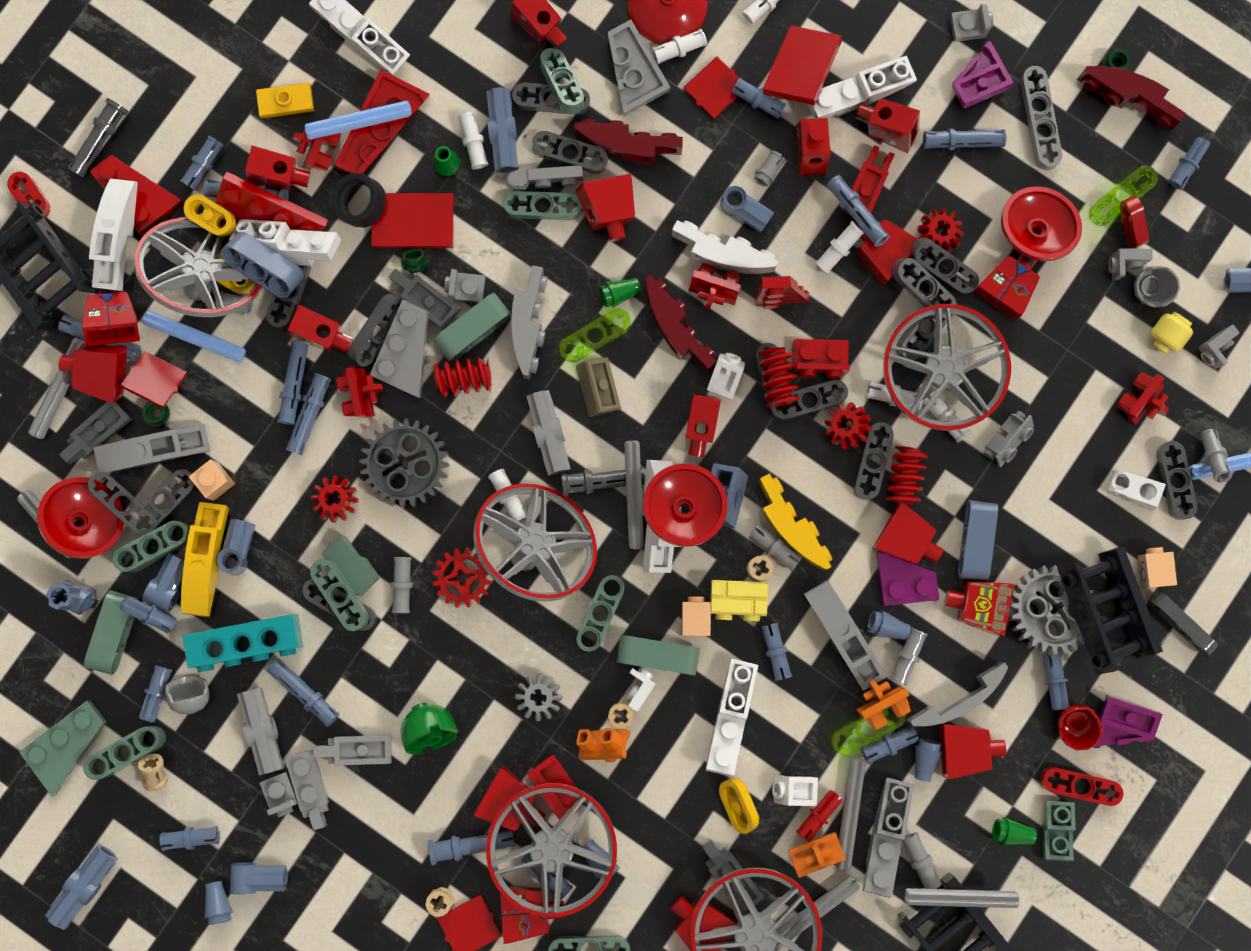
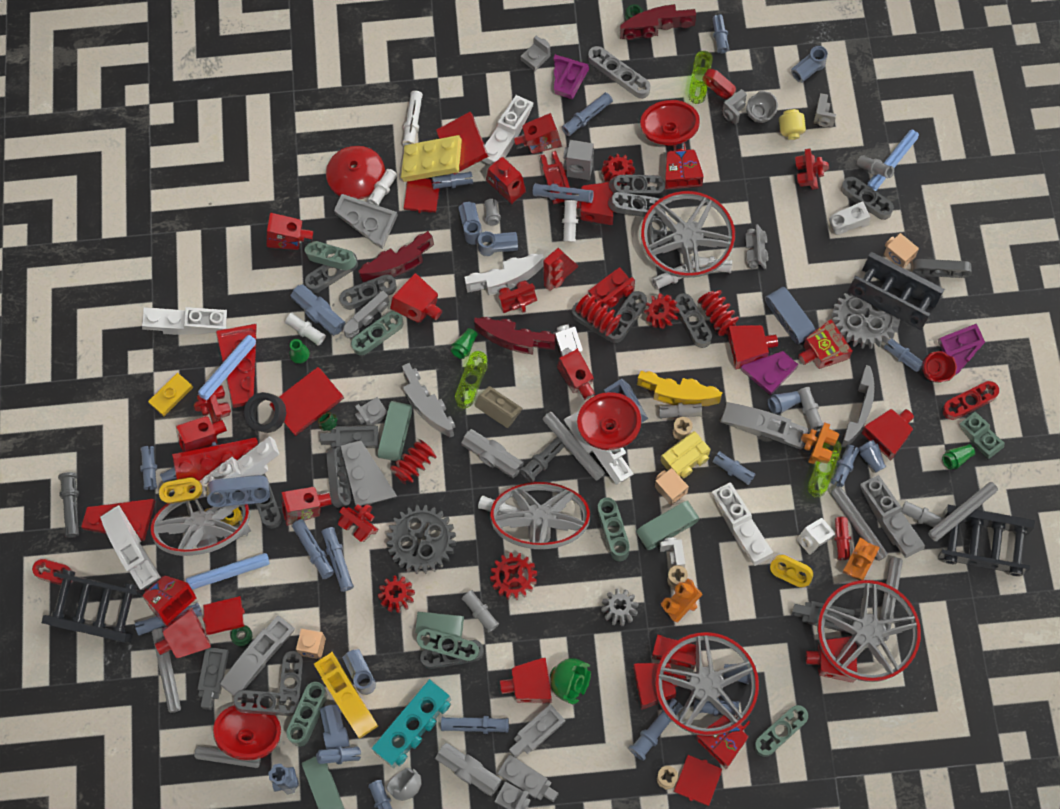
camera: 35 degrees left, 15 degrees down
(387, 697) = (529, 682): none -> red torso
(738, 160) = (470, 222): none -> sand blue piece
(755, 56) = (431, 158): none -> light yellow plate
(907, 186) = (579, 159): none -> light grey brick

